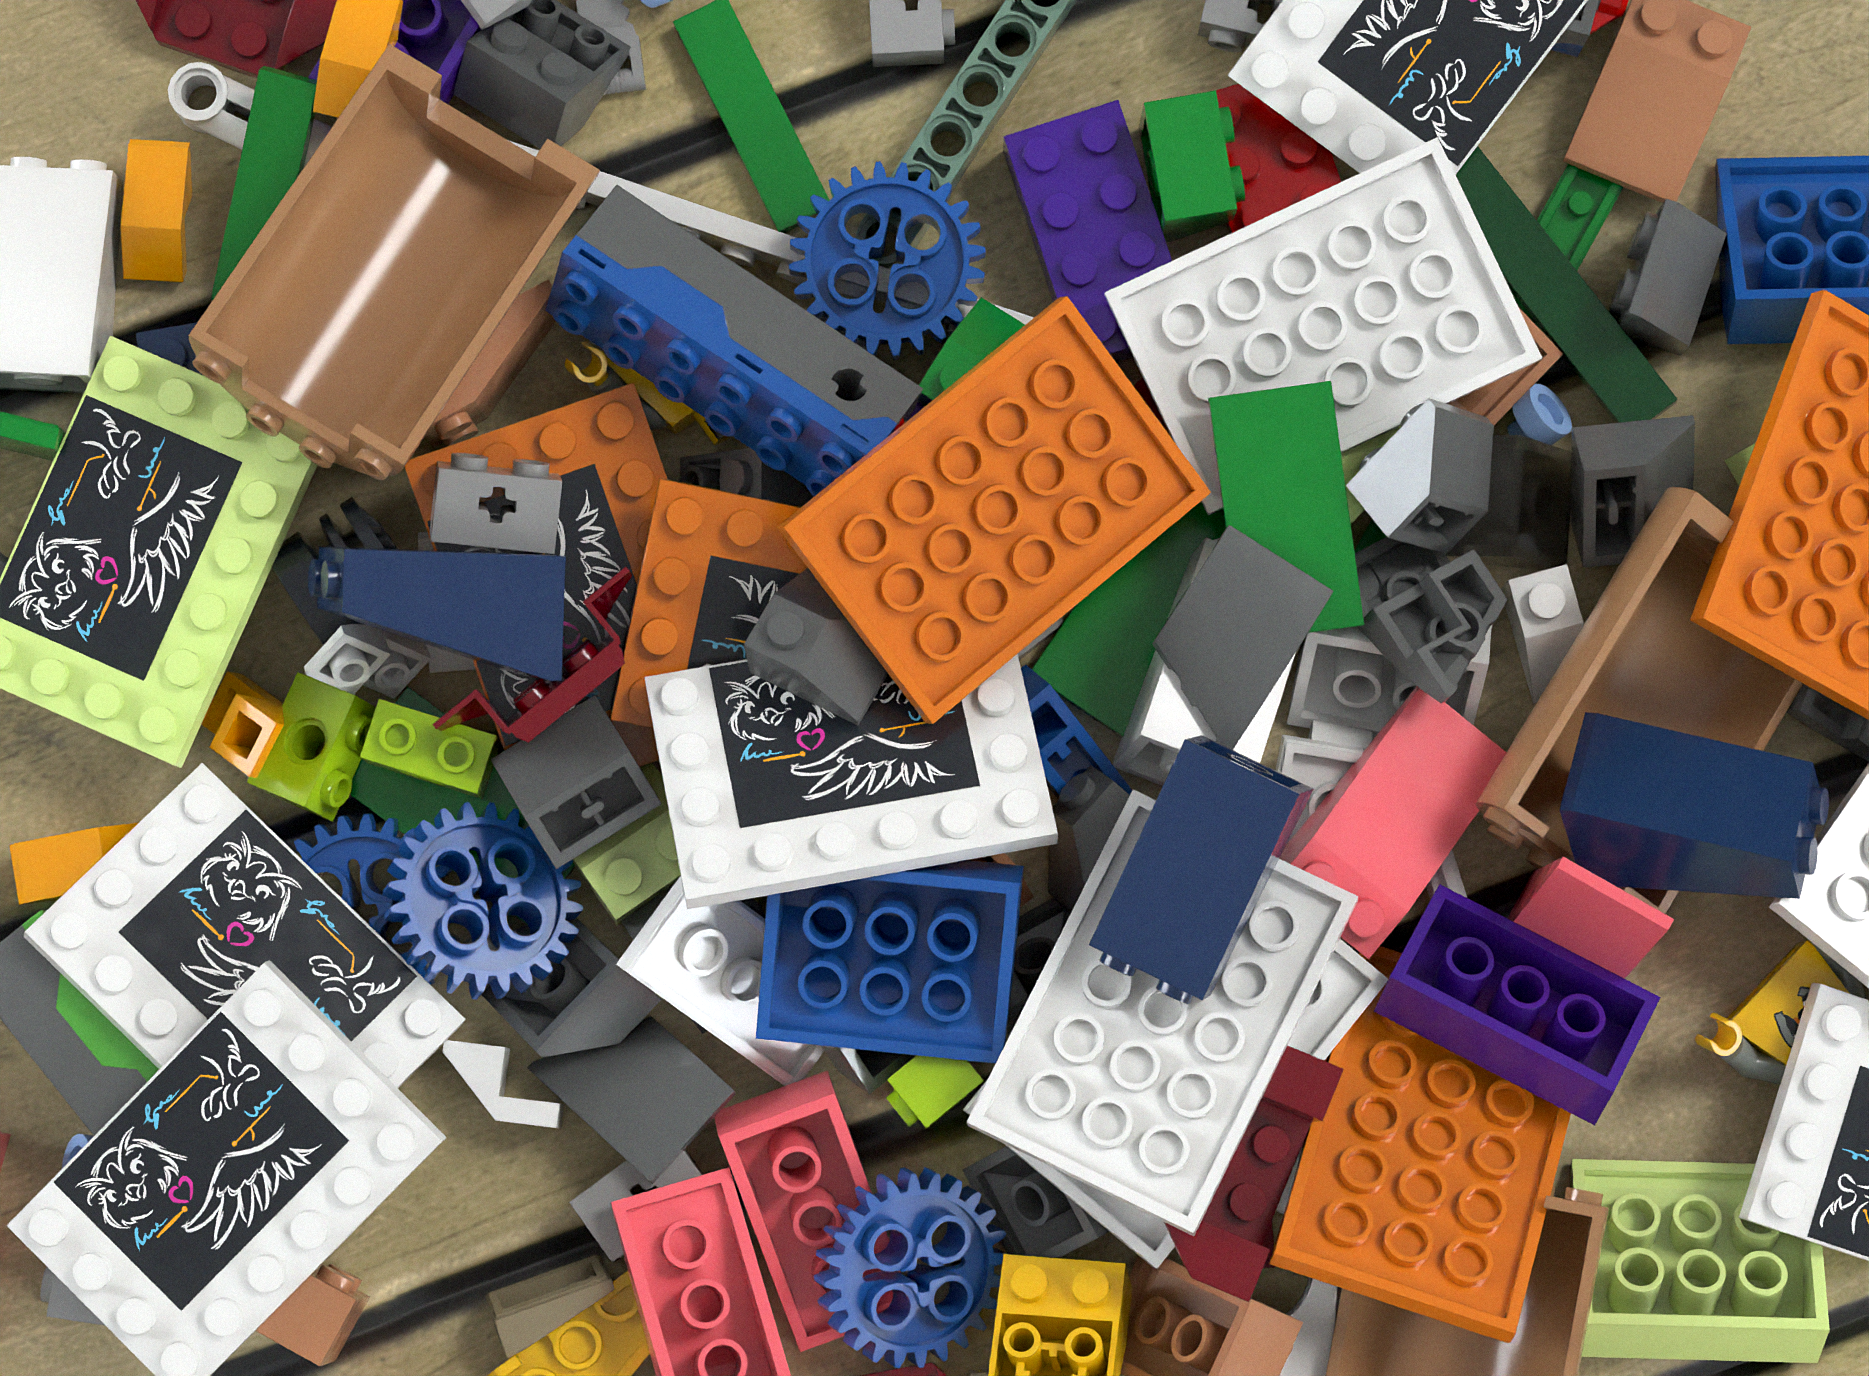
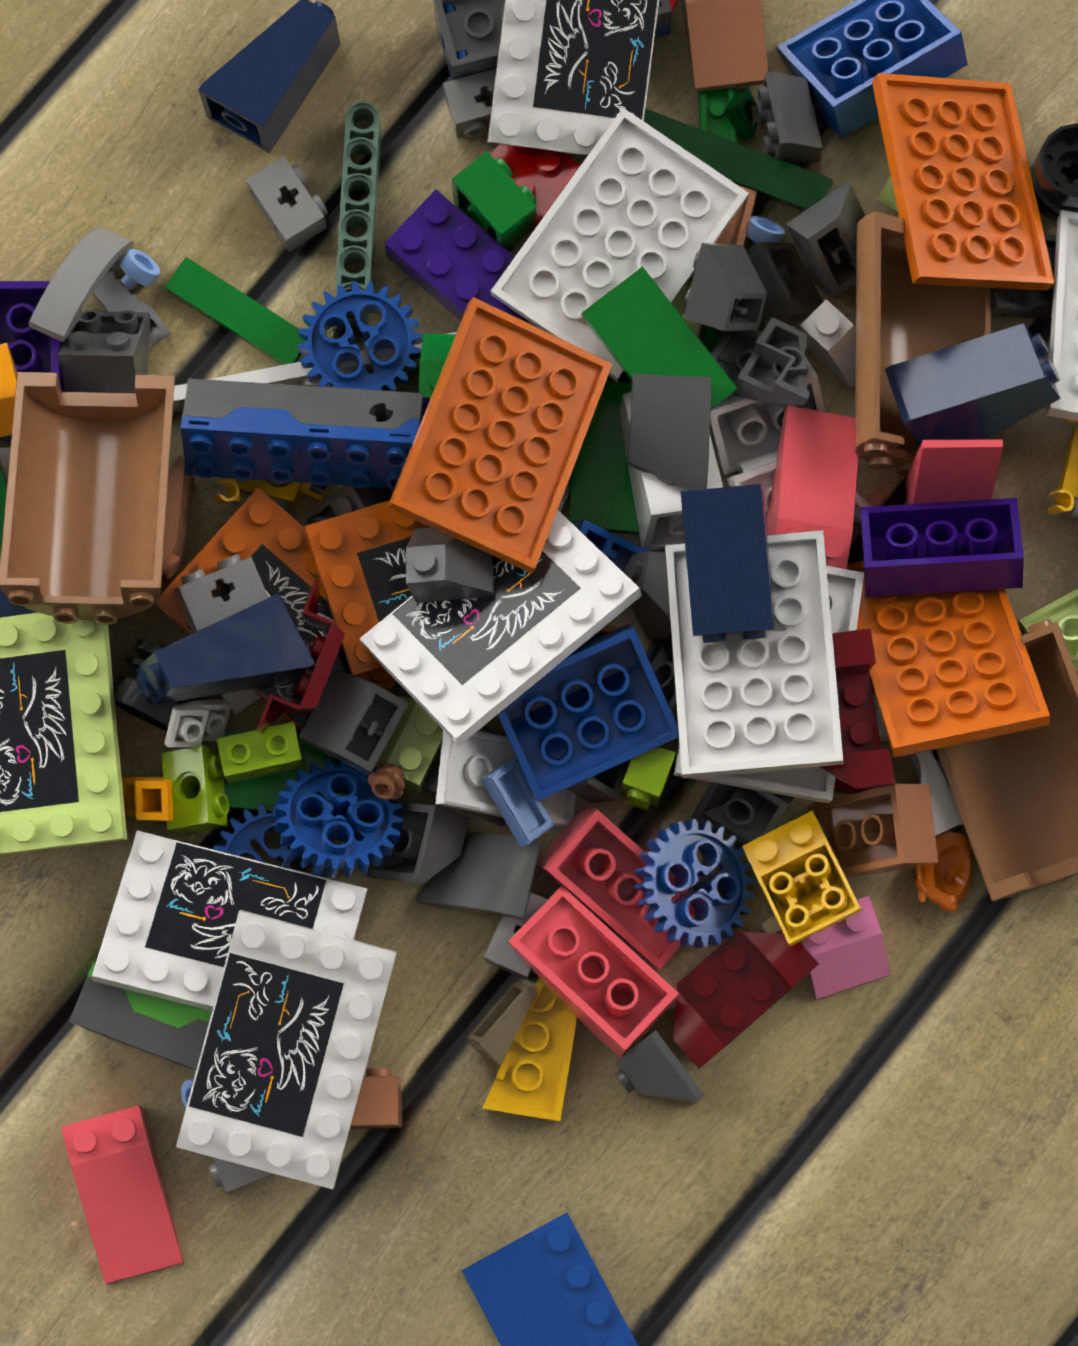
camera: 30 degrees left, 5 degrees down
(53, 864) = (83, 939): light orange slope -> none
(486, 1073) = (392, 915): white slope -> none
(575, 890) = (387, 781): none -> nougat plate
(729, 1022) = (516, 802): none -> medium blue tile
(1608, 228) = (740, 113): none -> dark green tile

